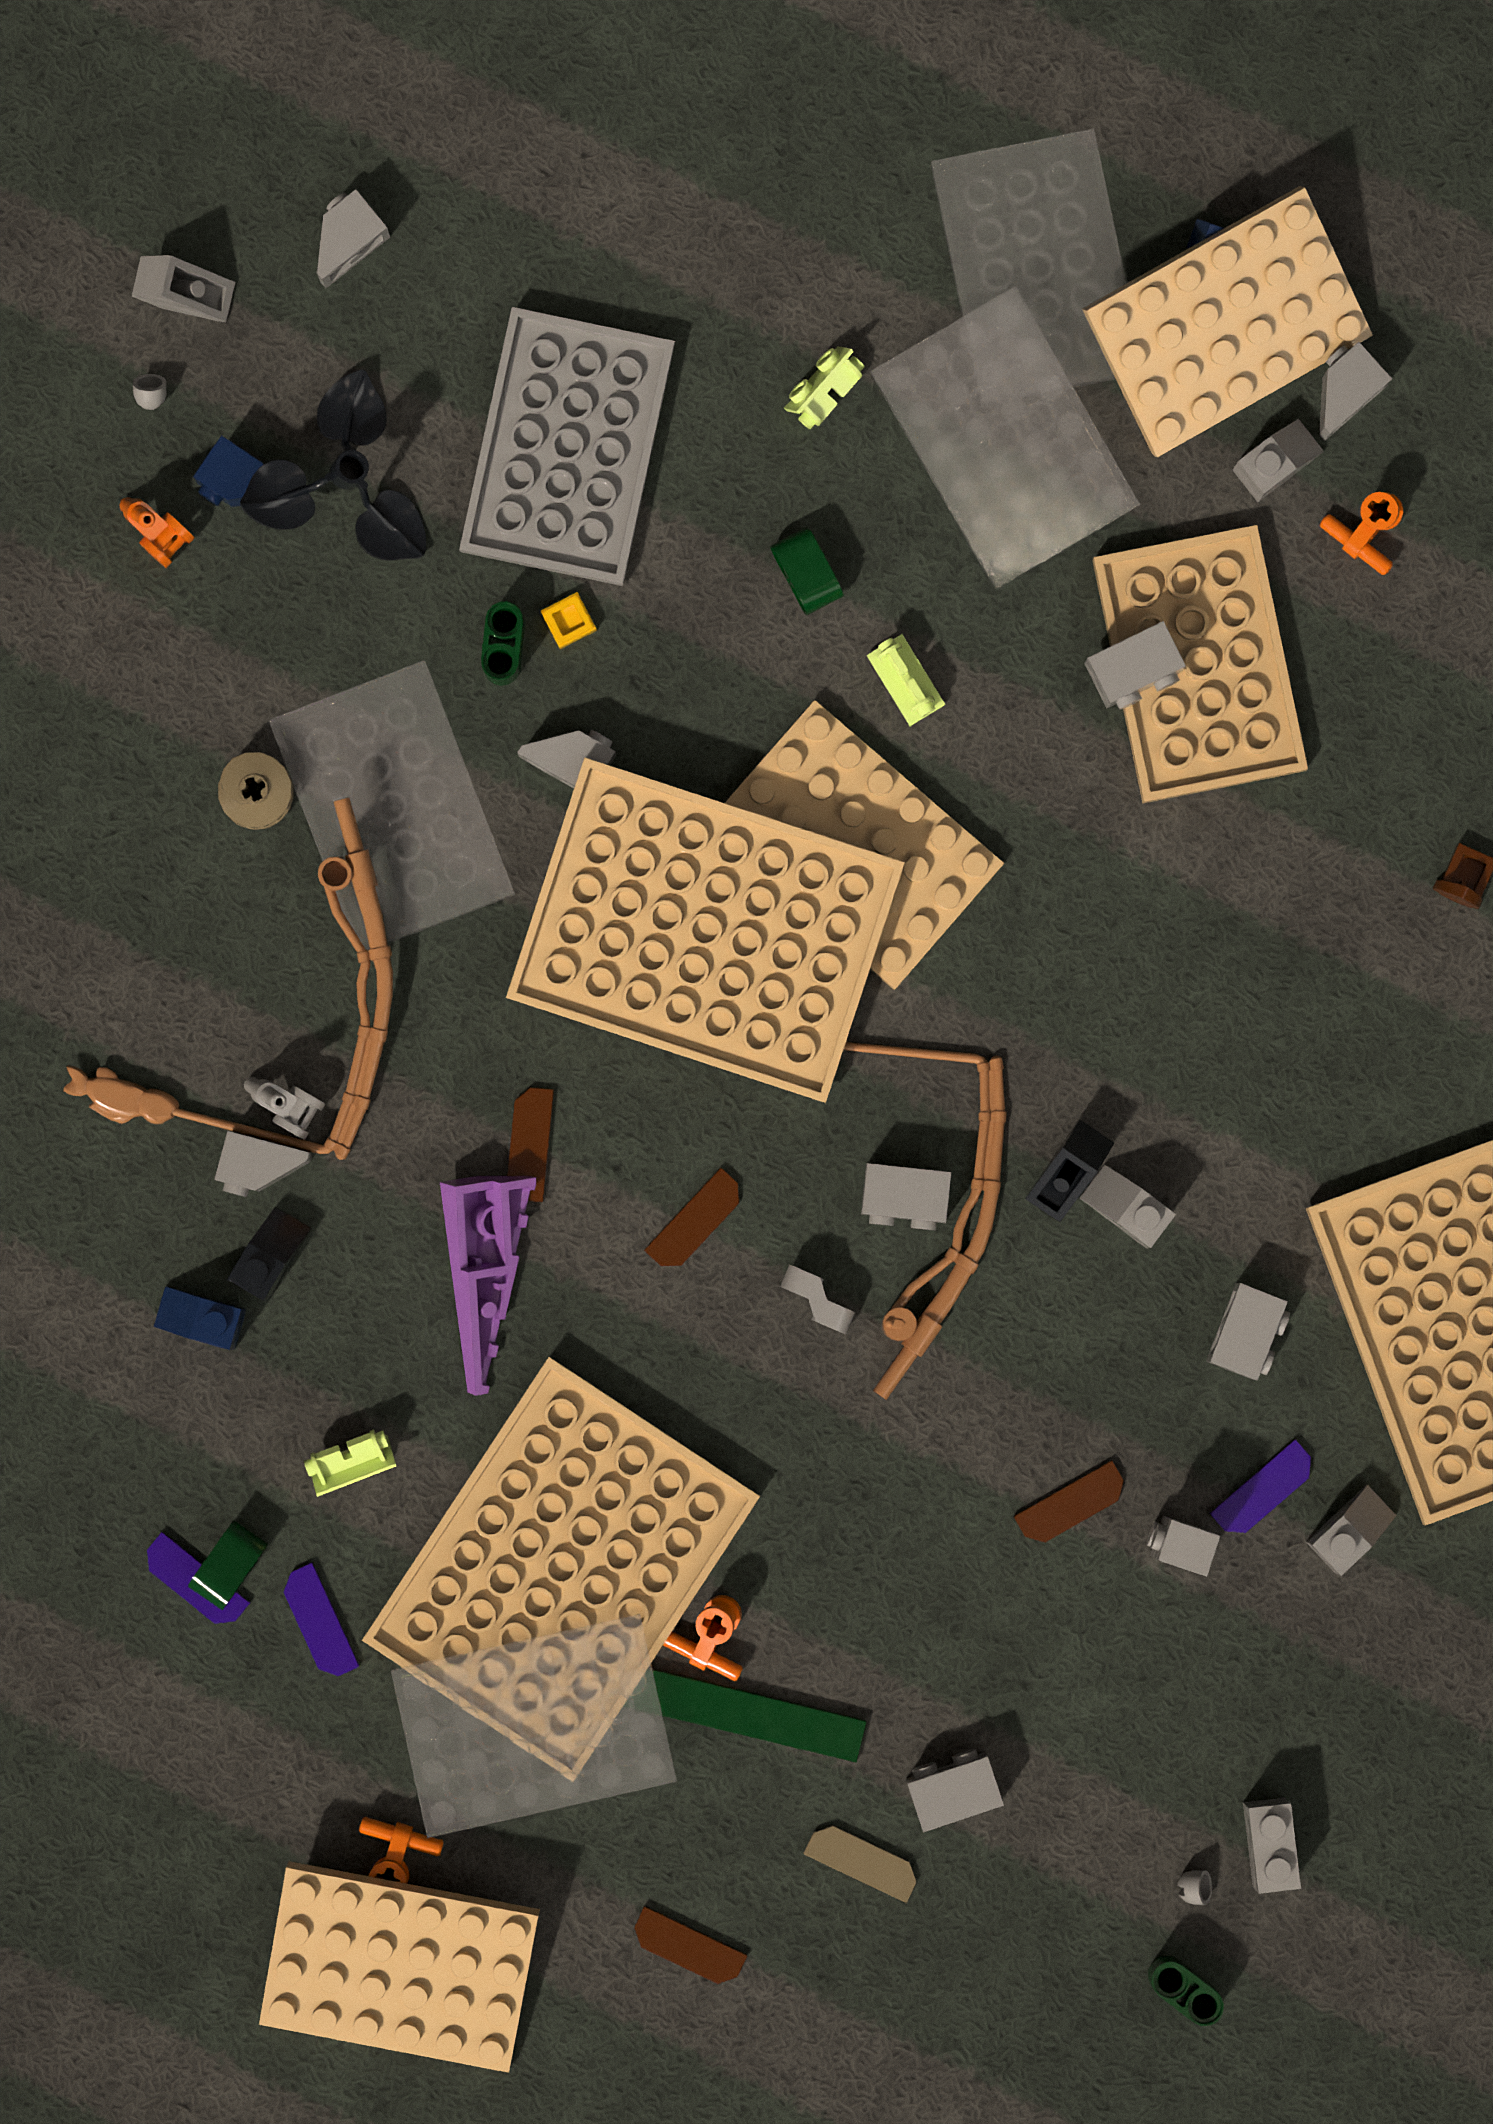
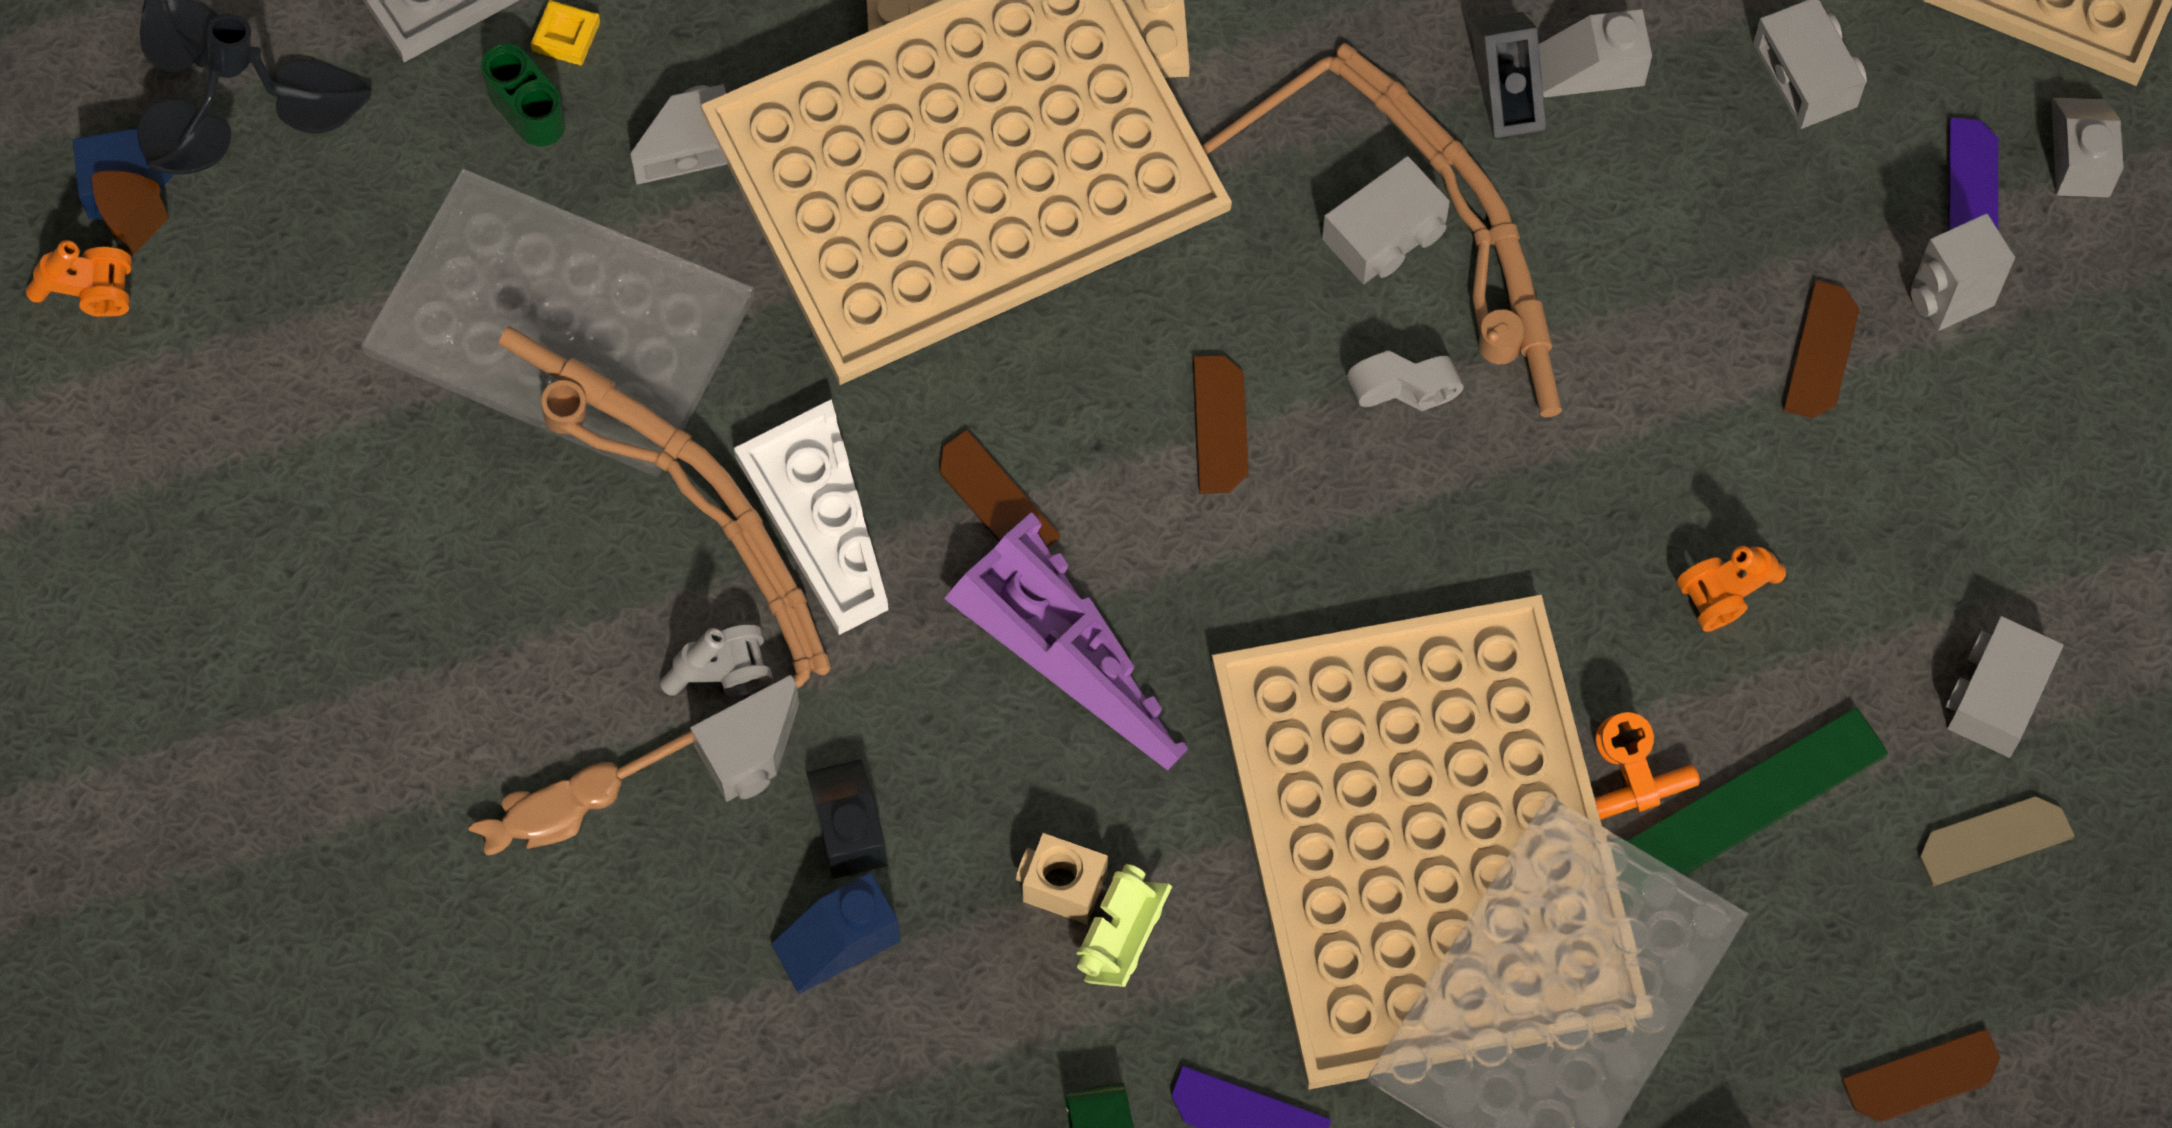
camera: 40 degrees left, 20 degrees down
(214, 507) = (129, 207): none -> reddish brown tile
(234, 787) = (424, 438): dark tan piece -> none
(360, 1416) = (1072, 900): none -> tan brick
(425, 1055) = (813, 502): none -> white wing
(861, 1588) = (1720, 587): none -> orange piece

